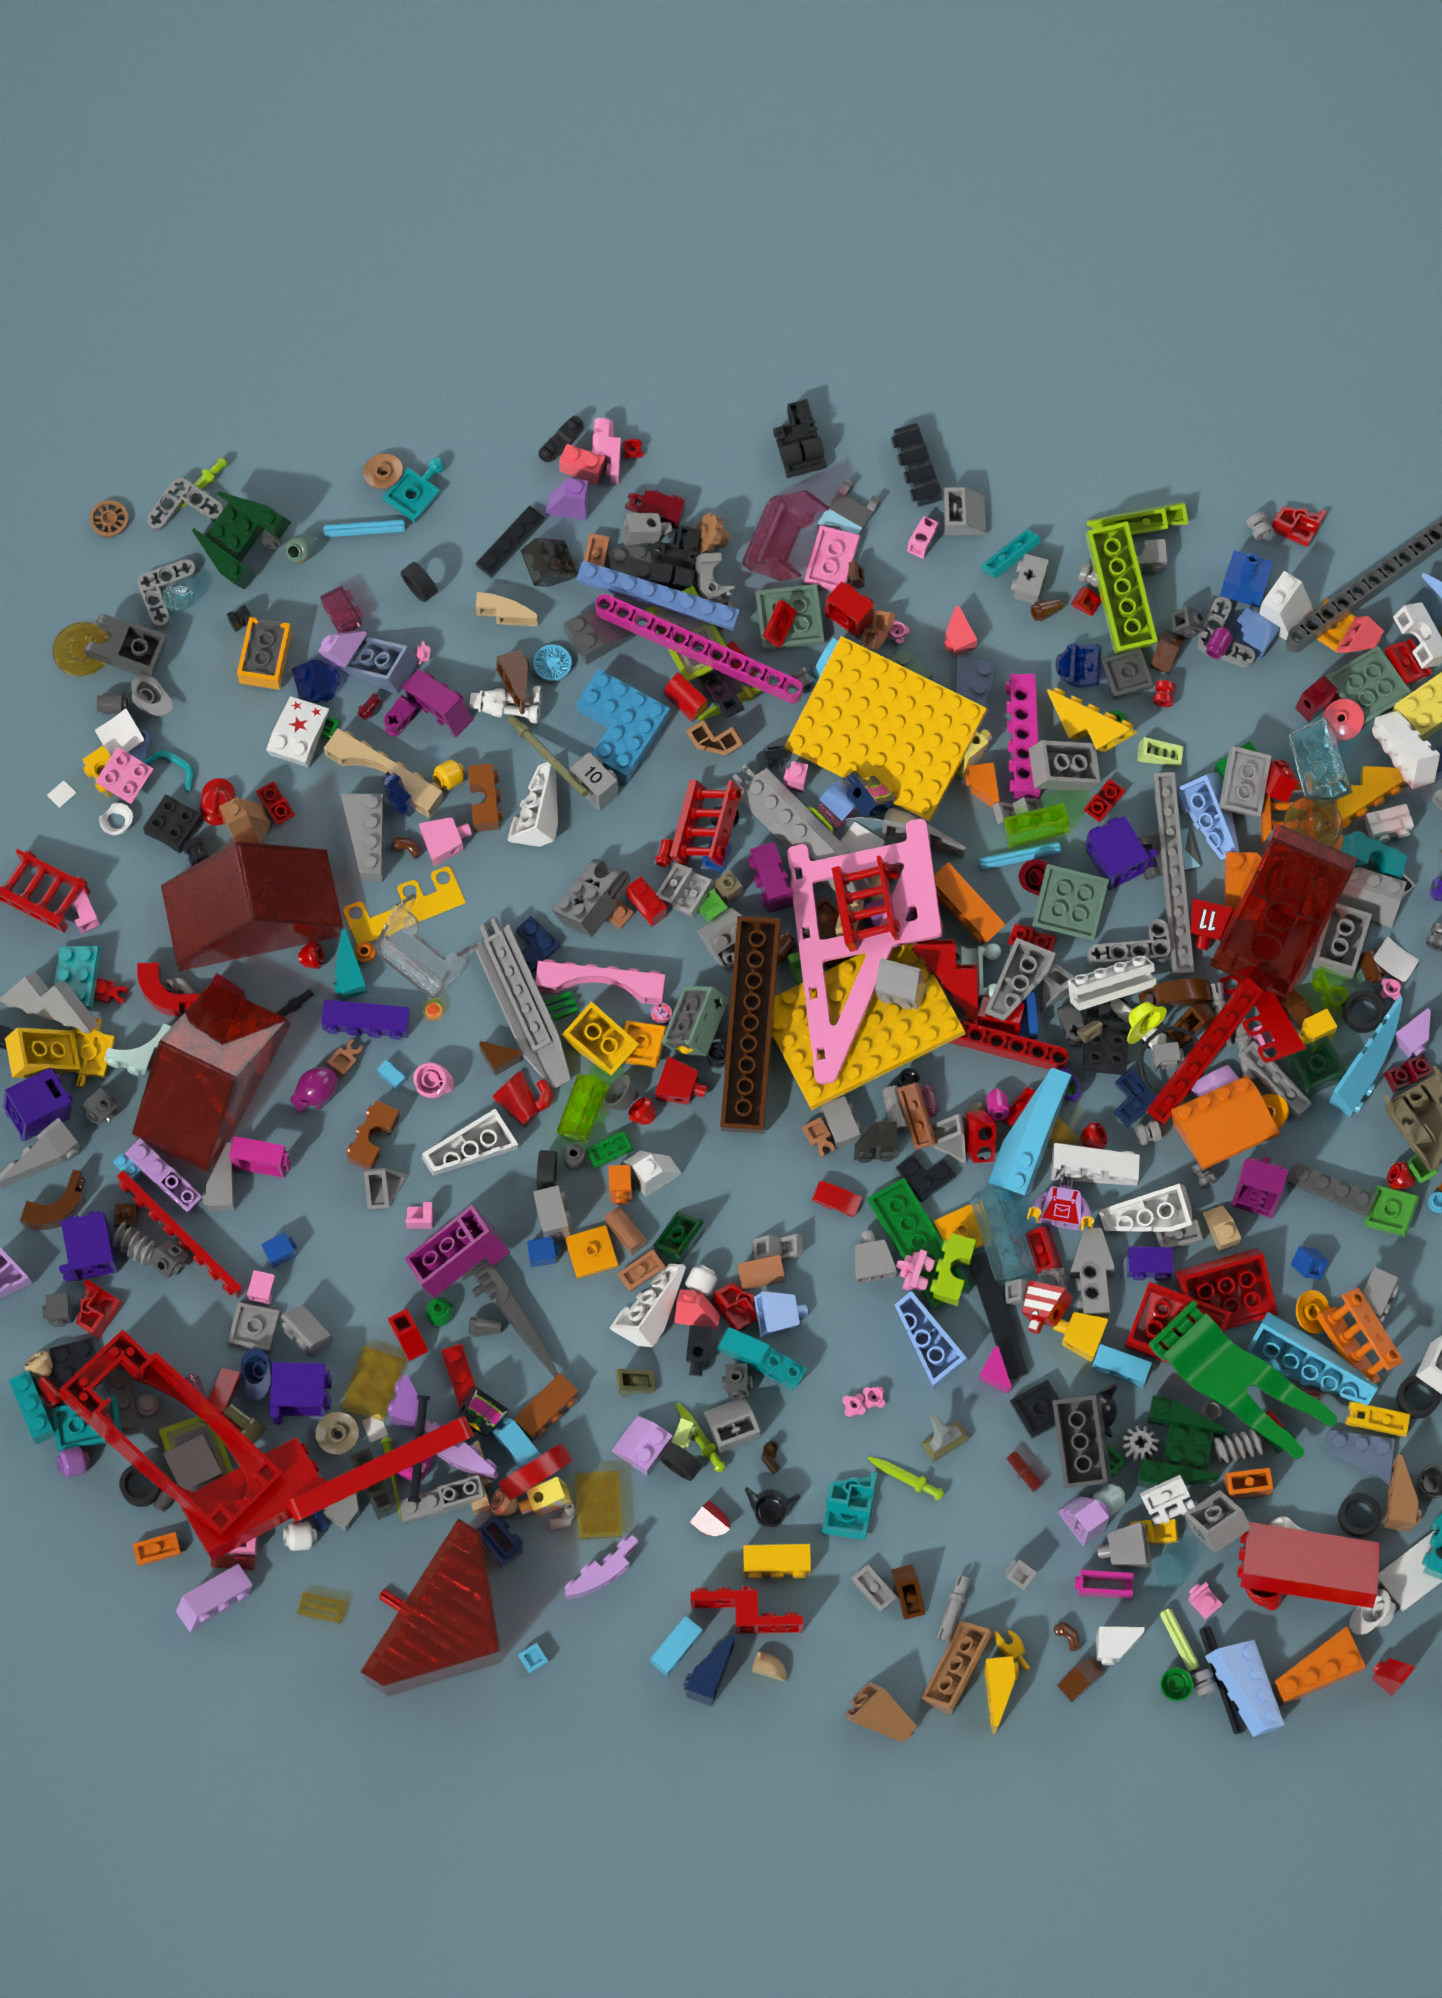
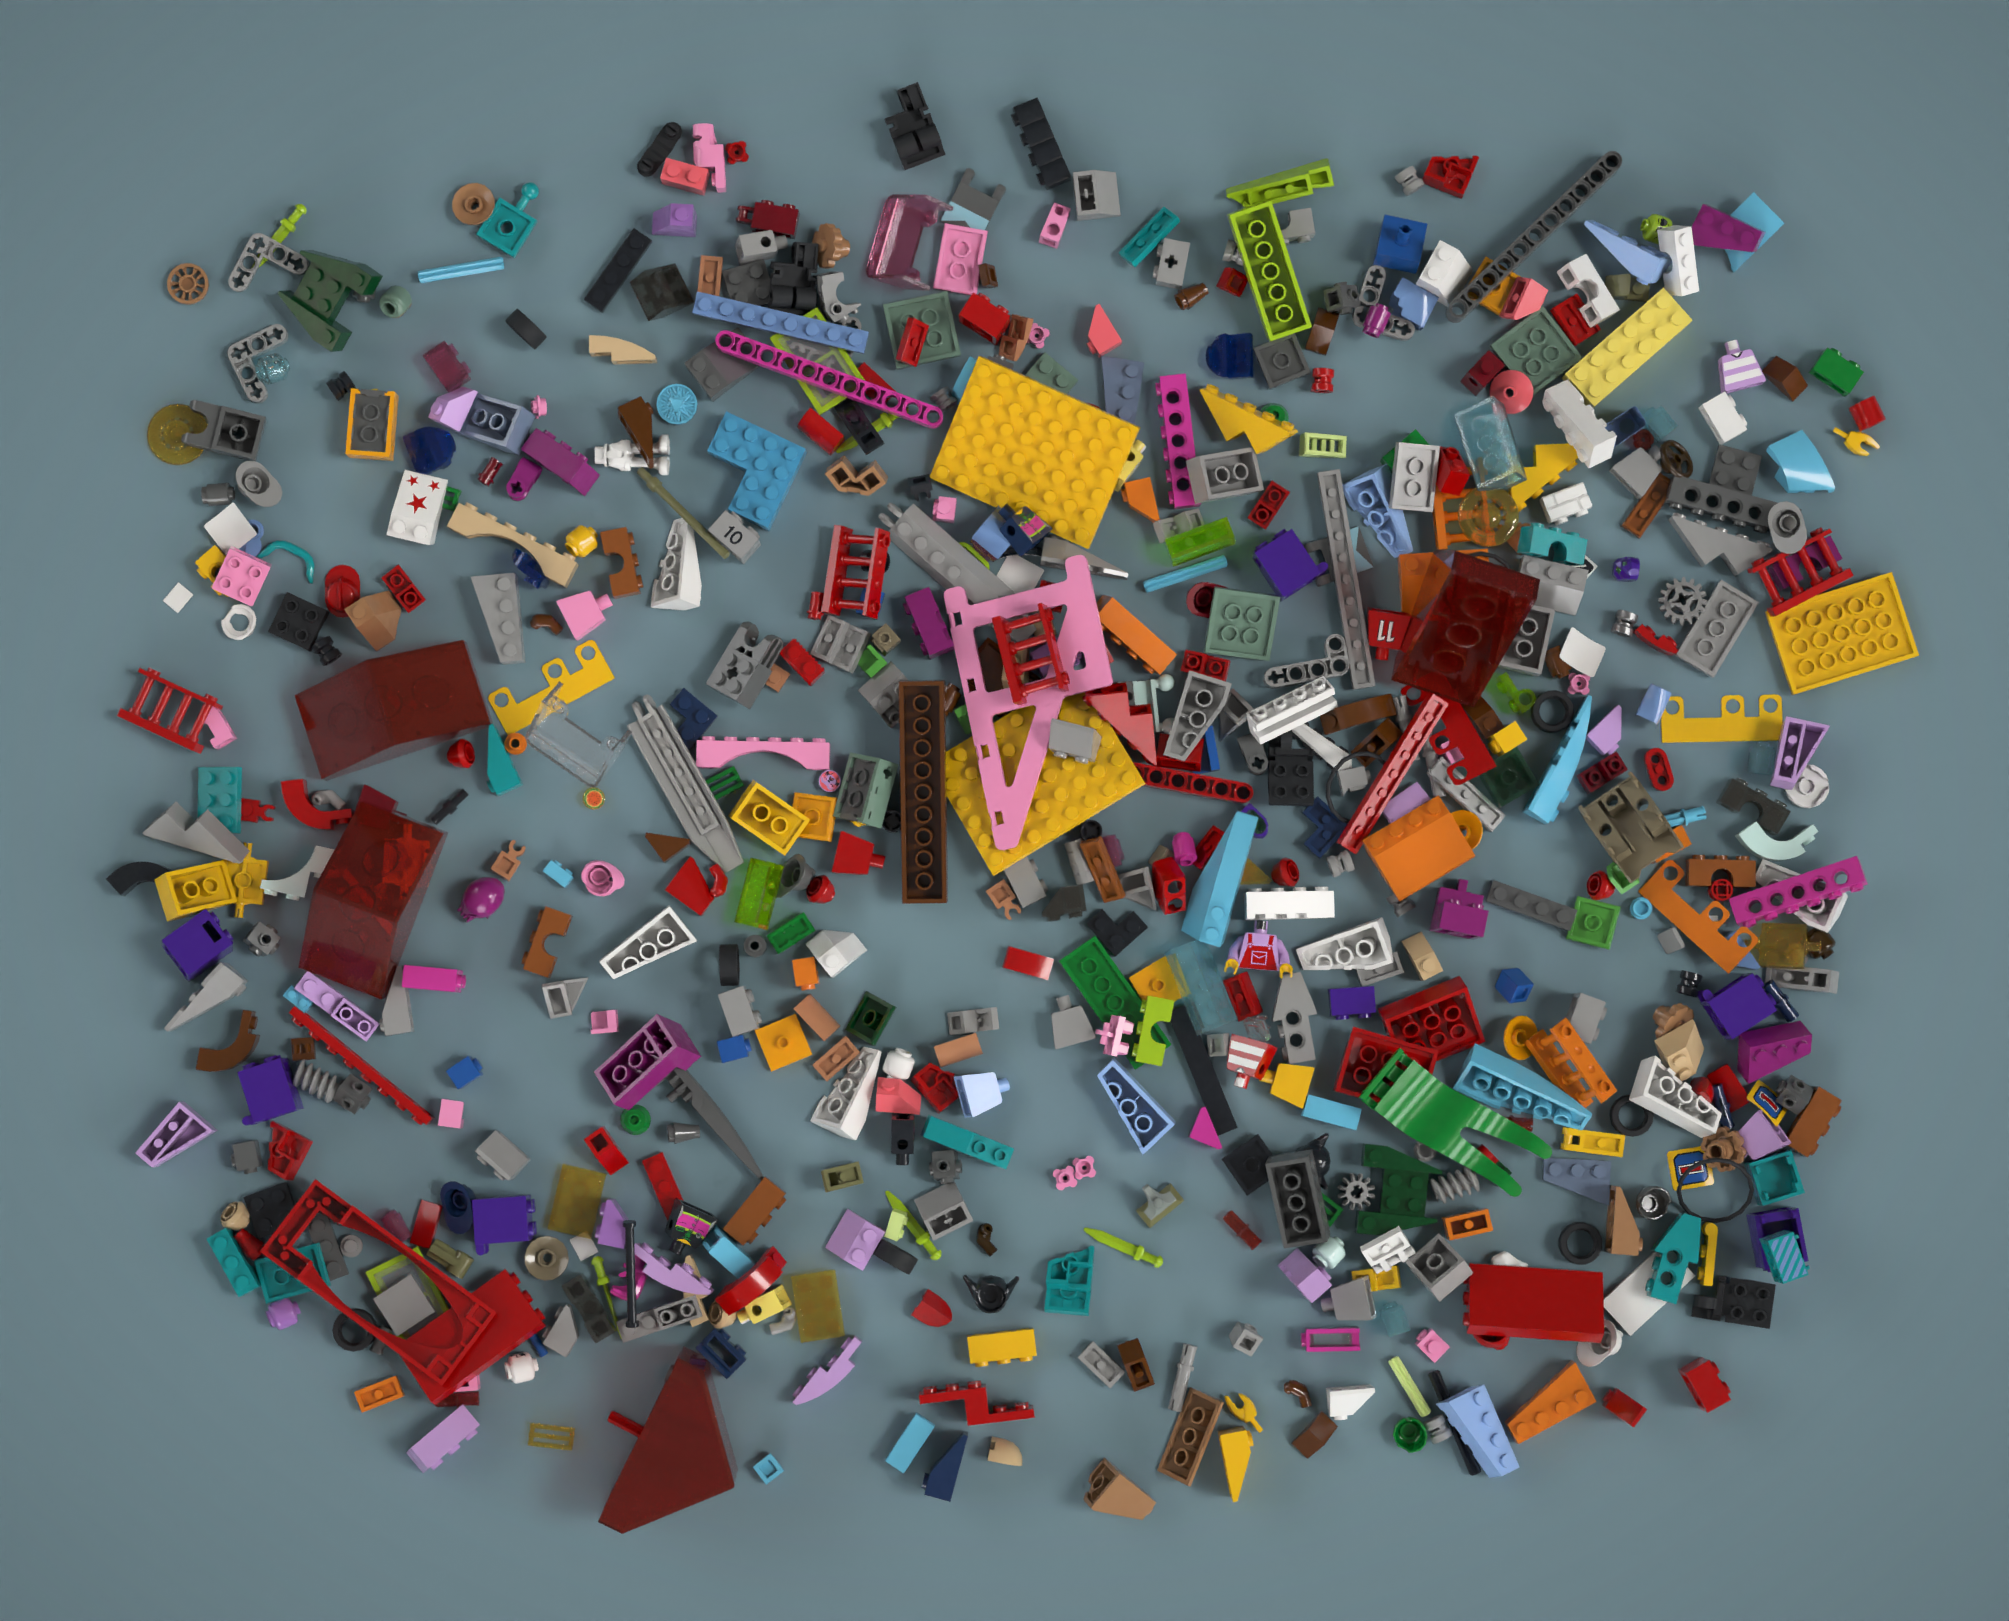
camera: 10 degrees left, 15 degrees up
(254, 1327) = (449, 1154): light grey tile -> none
(365, 1019) = (525, 817): dark purple brick -> none
(380, 1468) = (594, 1301): red beam -> none
(1090, 1031) = (1272, 763): dark tan slope -> none
(1144, 1019) = (1326, 743): neon yellow piece -> none

